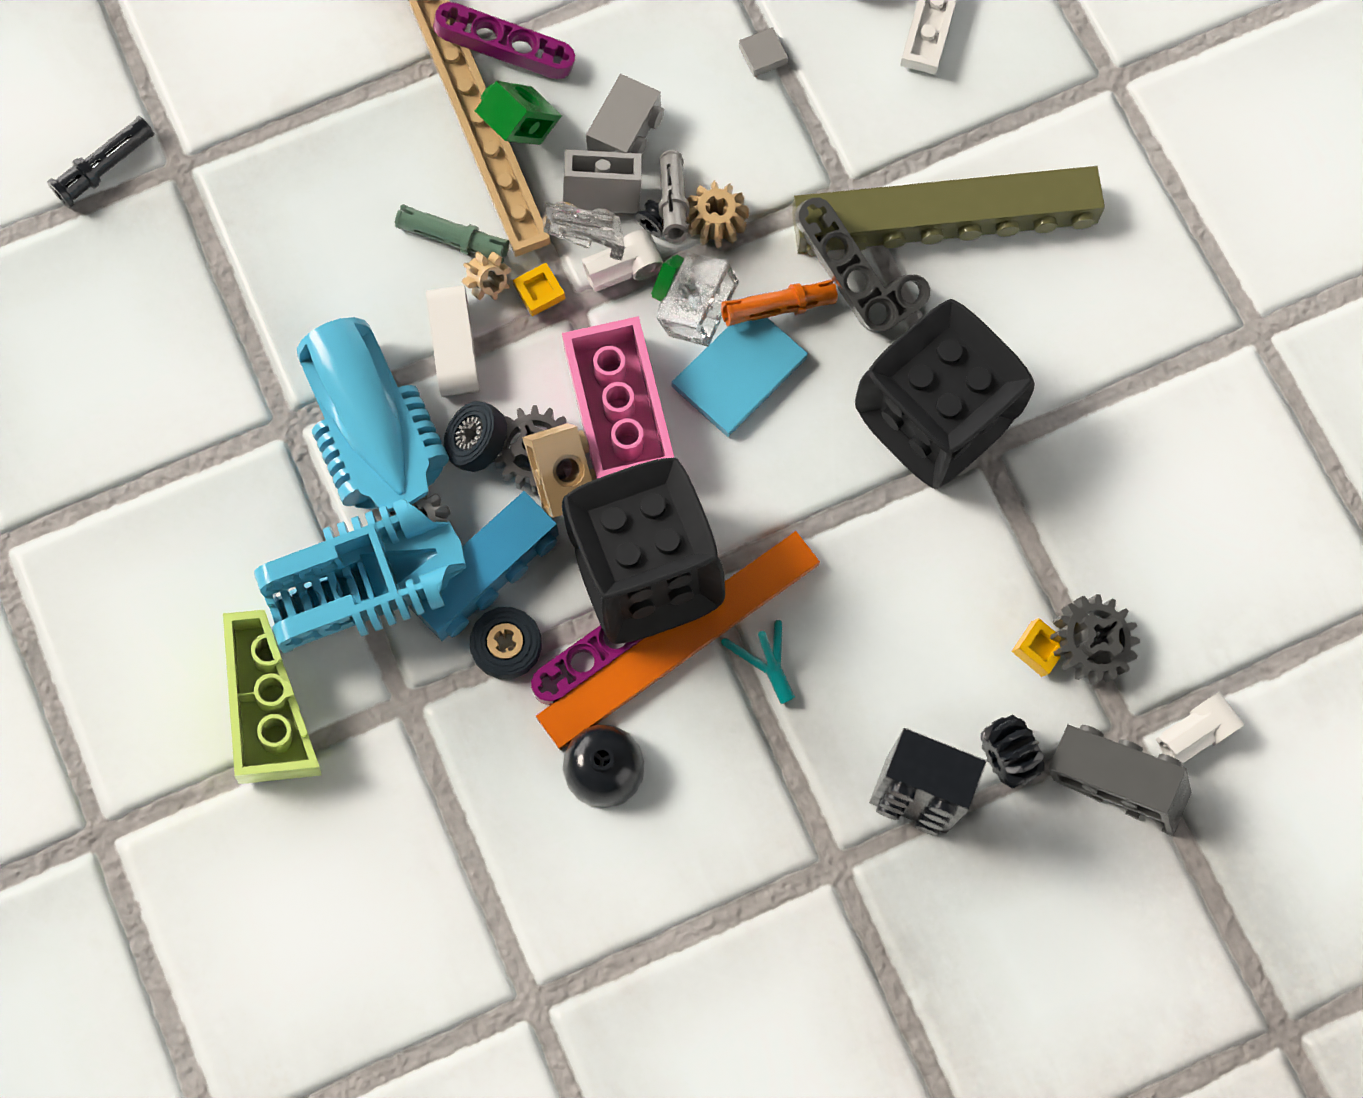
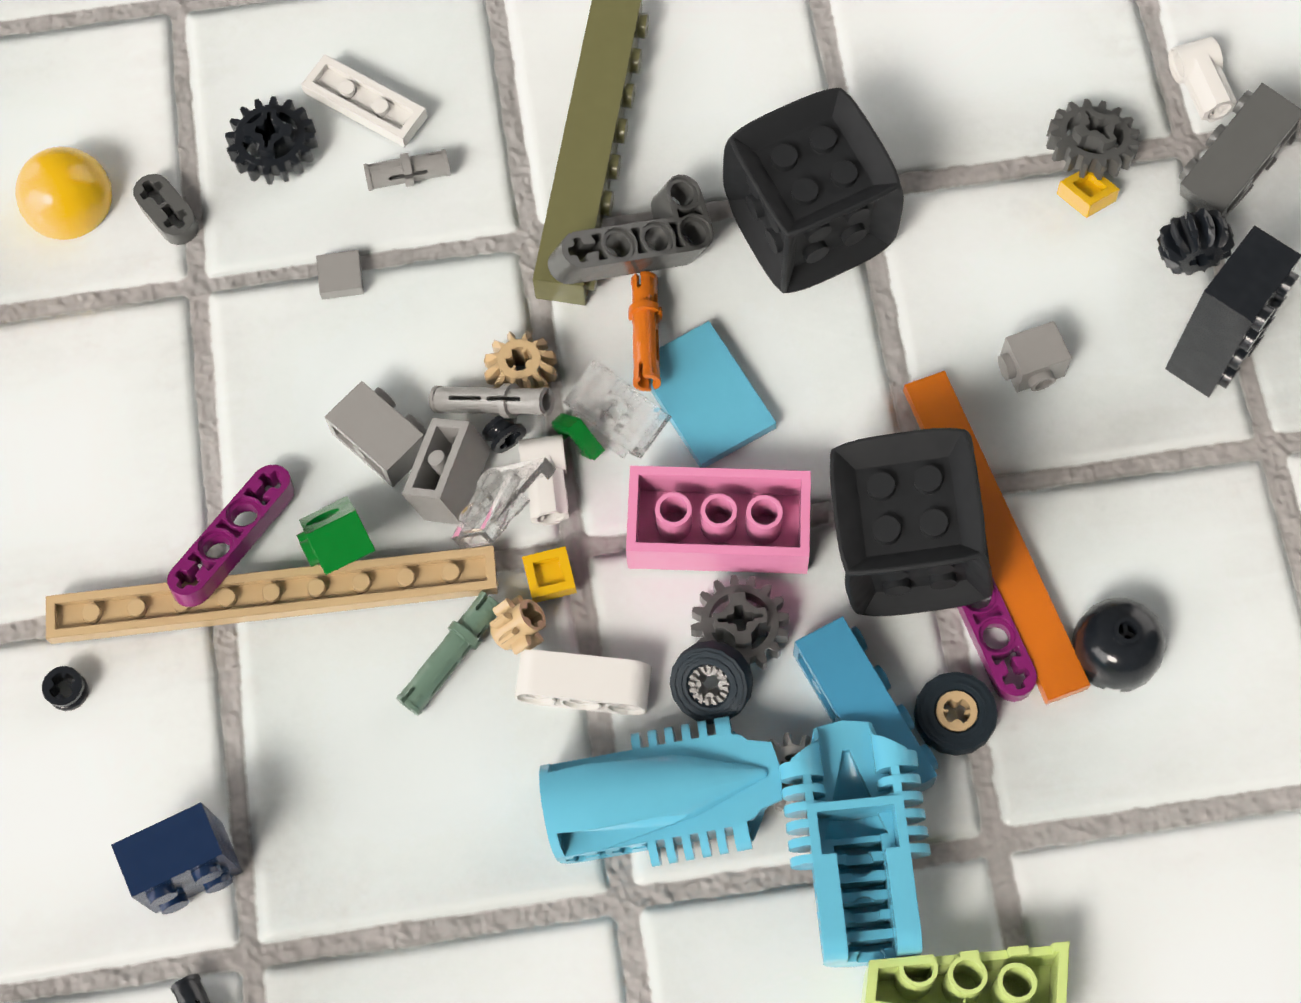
camera: 70 degrees left, 5 degrees down
(227, 84) = (177, 859): none -> dark blue brick
(544, 453) = (785, 592): tan brick -> none
(773, 658) = (1051, 448): teal plant -> none
(853, 634) = (1034, 358): none -> light grey brick
(876, 72) = (407, 169): none -> light grey pin

